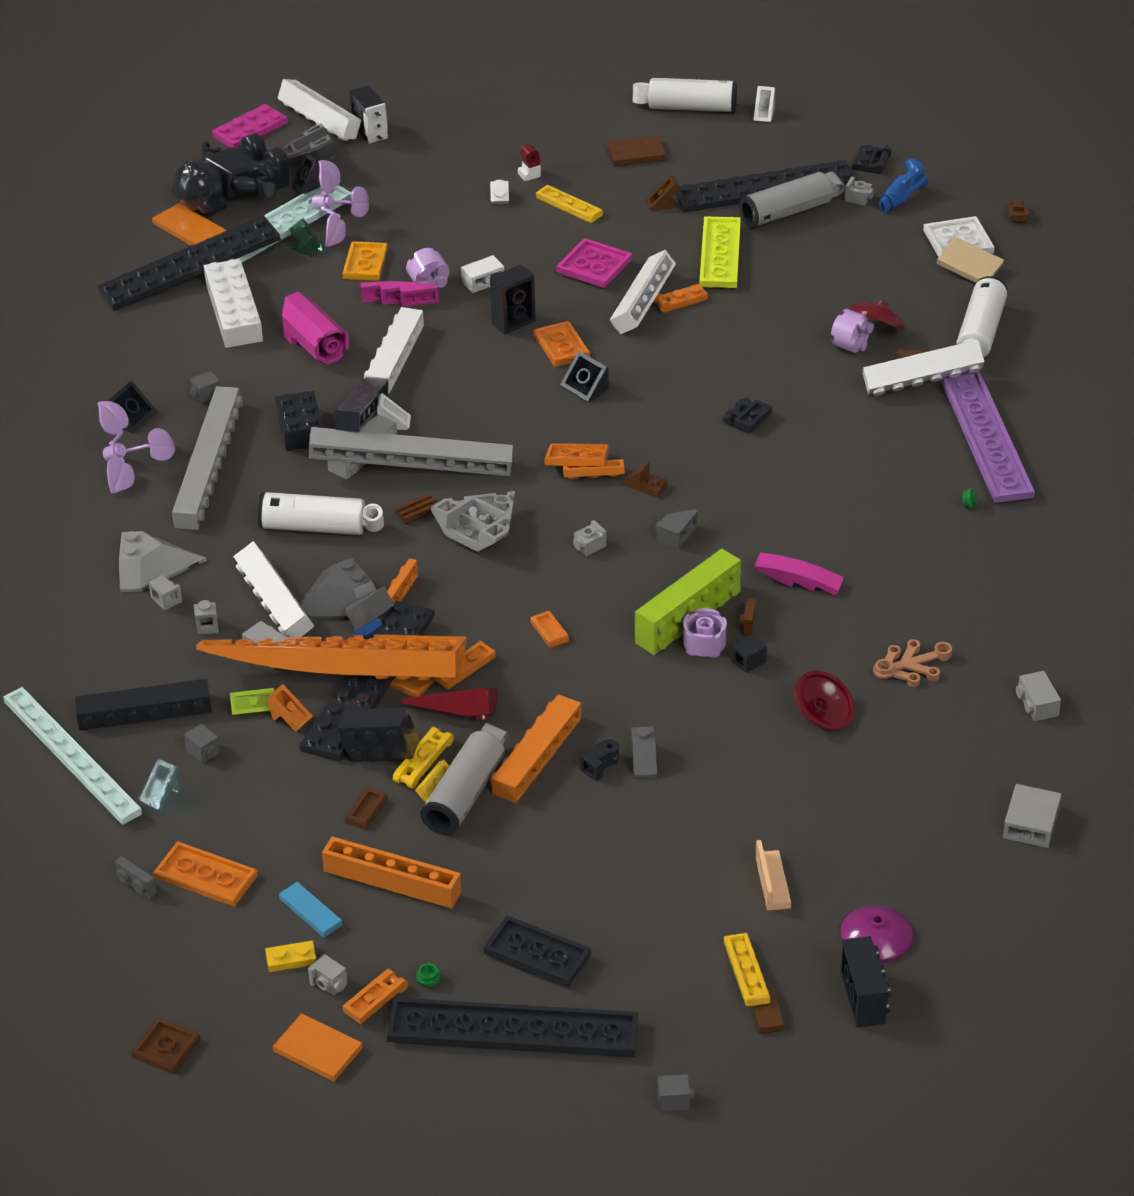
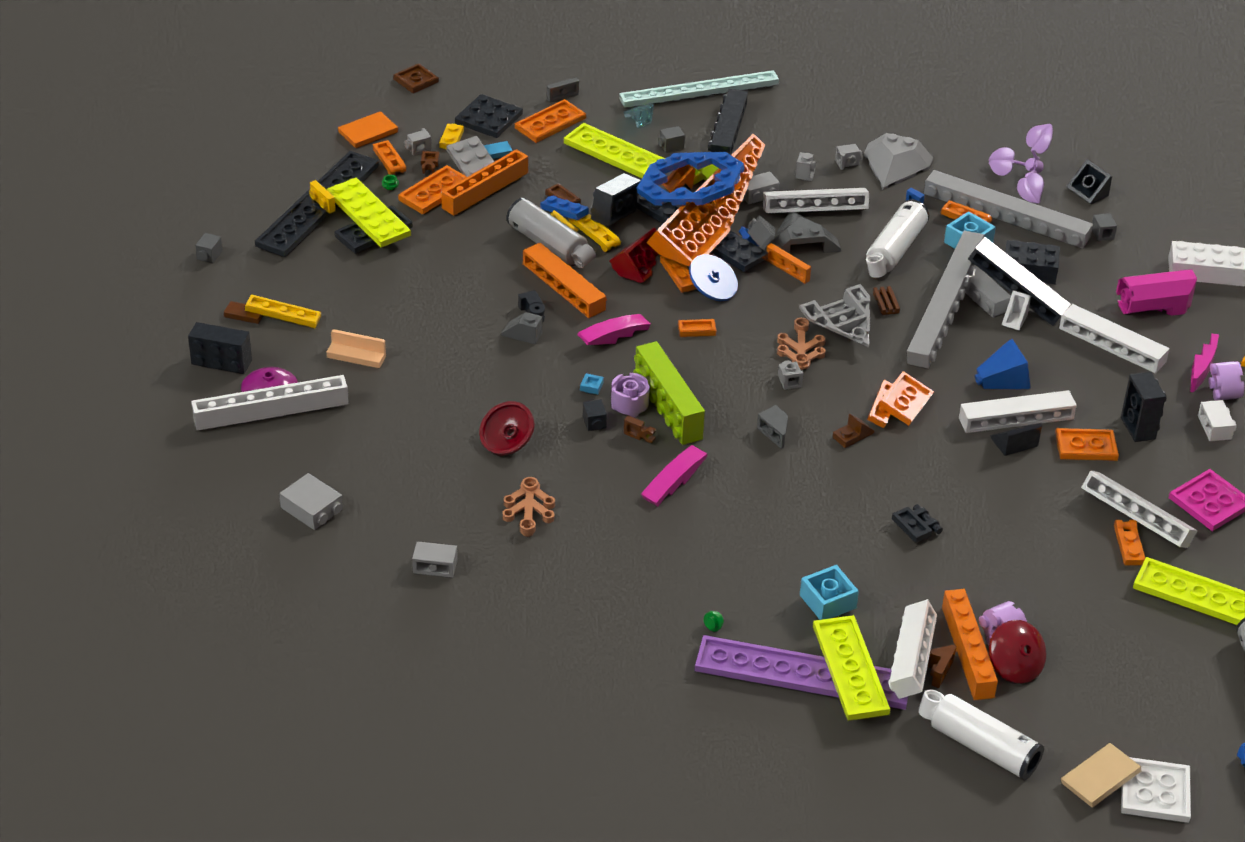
camera: 110 degrees right, 0 degrees up
(223, 937) = (488, 115): none -> black plate
(225, 523) = (915, 195): none -> blue plate
(232, 484) = (955, 210): none -> orange plate
(250, 790) = (611, 149): none -> neon yellow plate
(278, 466) = (970, 223): none -> medium azure brick
(332, 701) = (723, 185): none -> blue plate
(342, 907) = (469, 155): none -> light grey plate
(362, 953) = (429, 160): none -> reddish brown plate
(399, 790) = (565, 207): none -> blue plate
(422, 924) = (427, 192): none -> orange plate
(467, 628) = (720, 287): none -> piece
(493, 399) = (1004, 369): none -> blue slope
(515, 959) = (369, 212): none -> neon yellow plate
(518, 1006) = (322, 196): none -> yellow plate
(549, 386) = (1017, 411): none -> white brick
(556, 541) = (804, 360): none -> nougat plant
(604, 681) = (609, 330): none -> dark pink slope
(699, 673) = (591, 383): none -> dark azure plate
(883, 348) = (969, 644): none -> orange brick
(887, 434) = (829, 593): none -> medium azure brick
(918, 904) = (270, 402): none -> white brick
(969, 399) = (851, 668): none -> neon yellow plate

